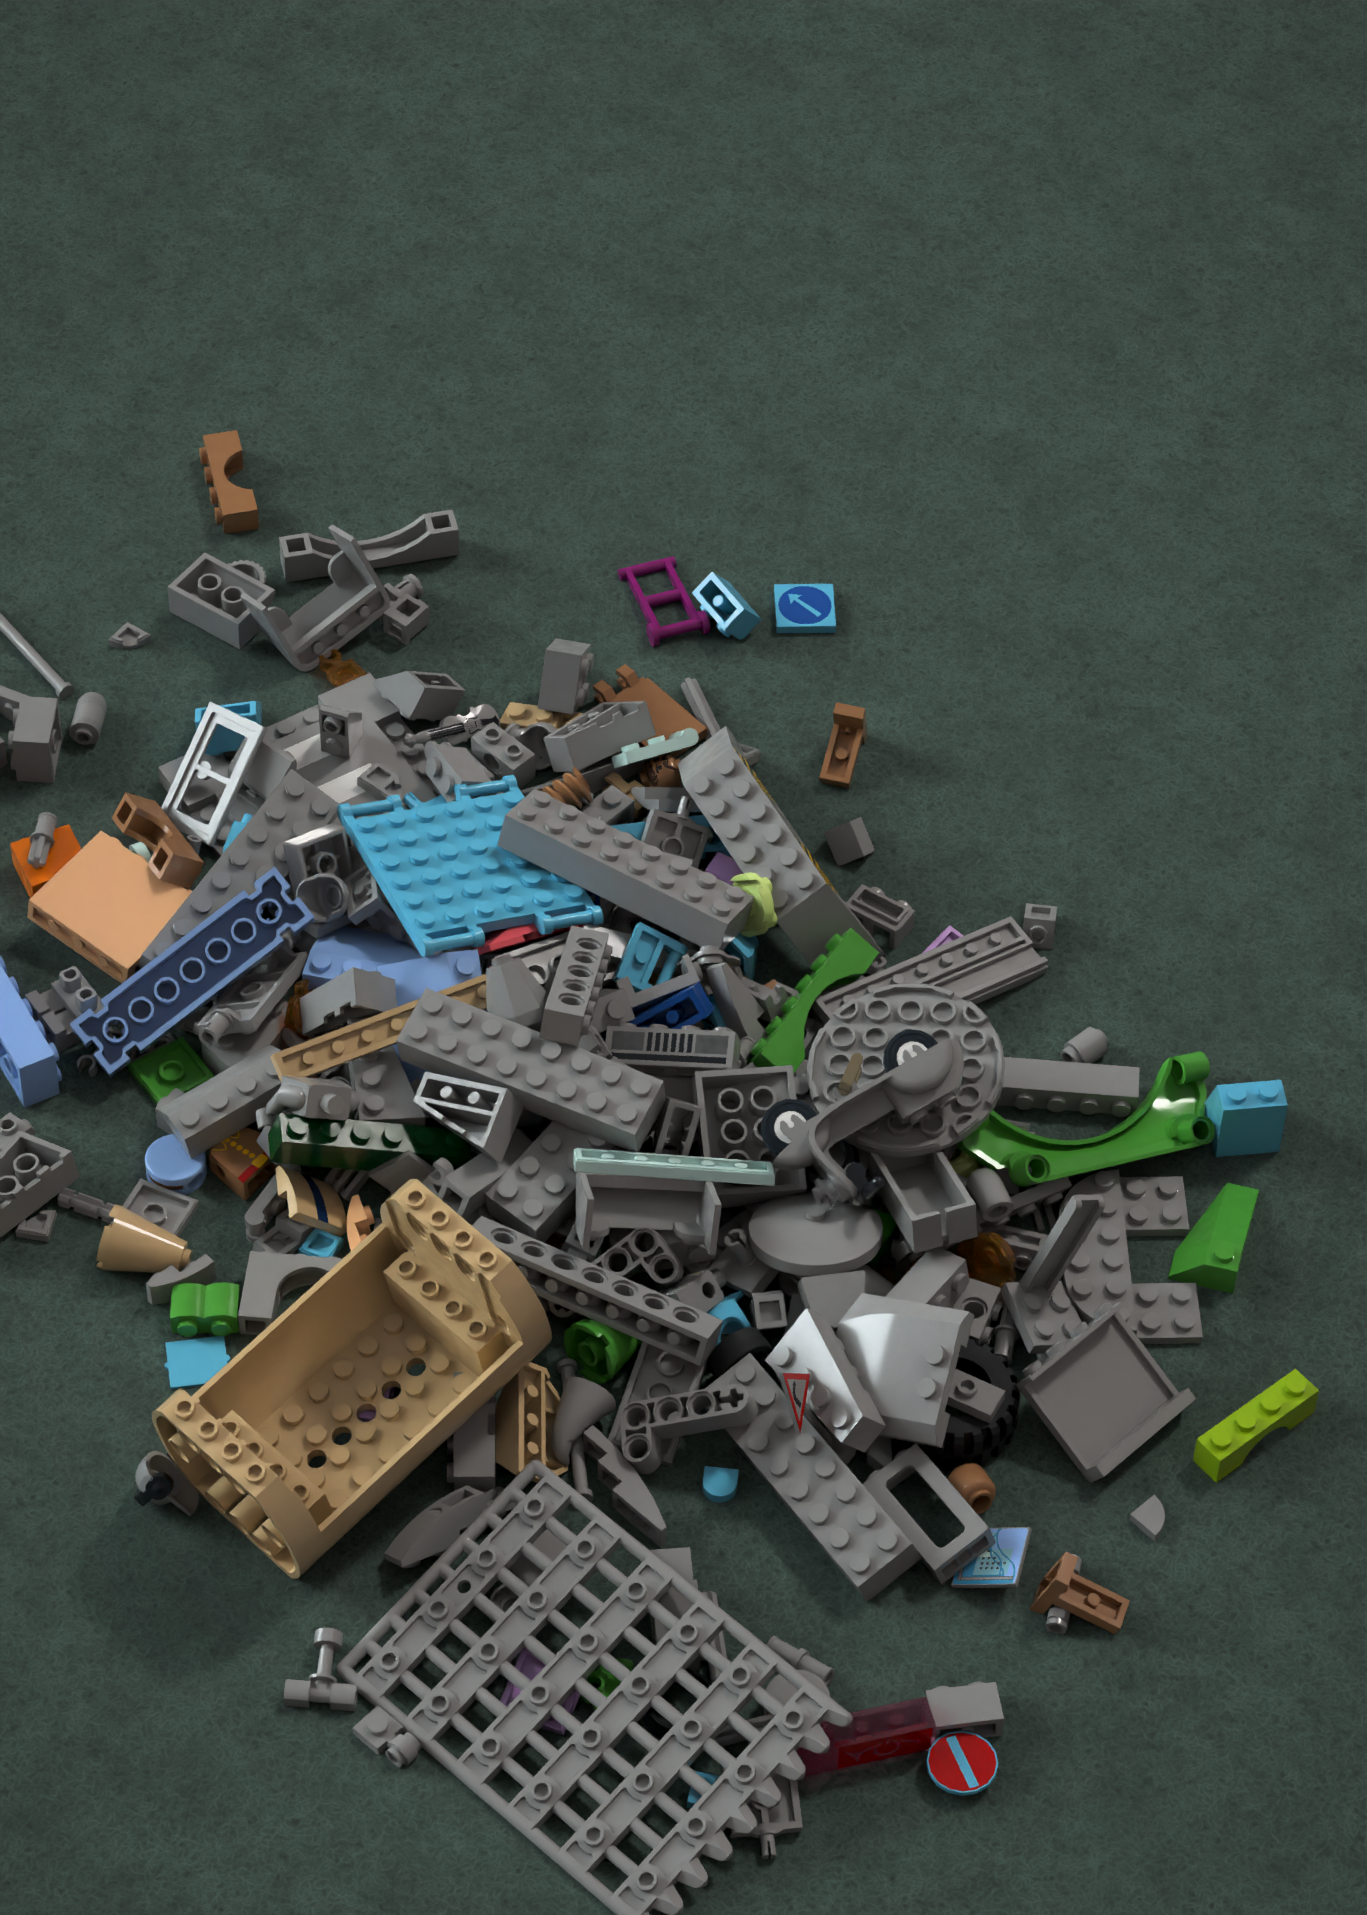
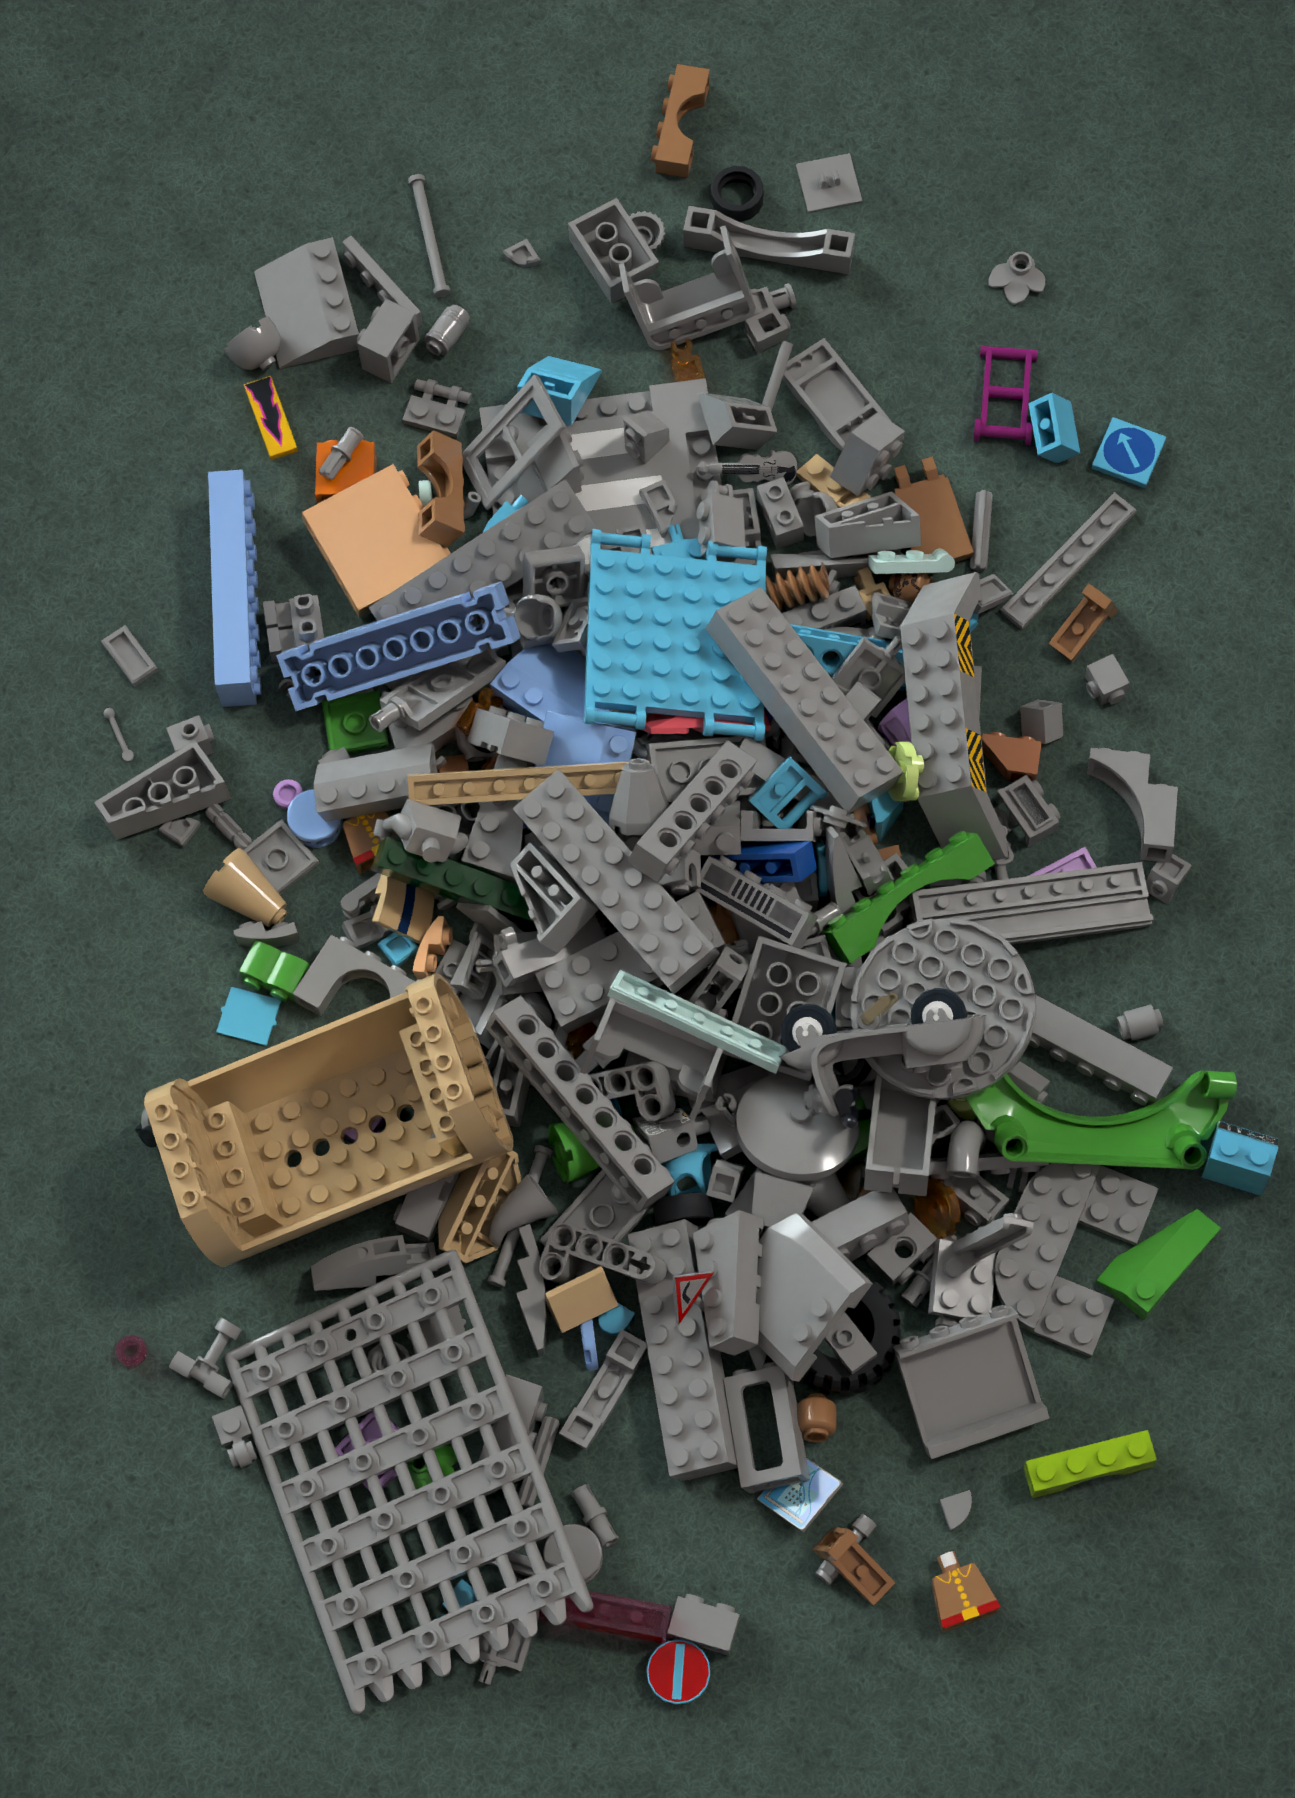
camera: 30 degrees right, 20 degrees up
(108, 793) = (434, 415): none -> light grey plate
(133, 1156) = (285, 792): none -> lavender tile
(233, 1693) = (124, 1344): none -> clear pink plate
(312, 507) = (737, 174): none -> black tyre
(398, 491) = (829, 182): none -> light grey piece
(438, 643) = (777, 374): none -> light grey bar
(496, 649) = (829, 392): none -> light grey slope
(621, 506) = (1017, 281): none -> light grey plate
(681, 1467) = (581, 1299): none -> tan slope
(706, 1510) = (589, 1345): none -> light blue tile
(746, 1544) = (604, 1390): none -> light grey slope
(797, 711) = (1068, 561): none -> light grey tile
(846, 873) = (1012, 755): none -> nougat slope
(891, 787) = (1106, 680): none -> light grey brick
(993, 868) = (1150, 803): none -> light grey arch
(1199, 1585) = (961, 1594): none -> medium nougat torso

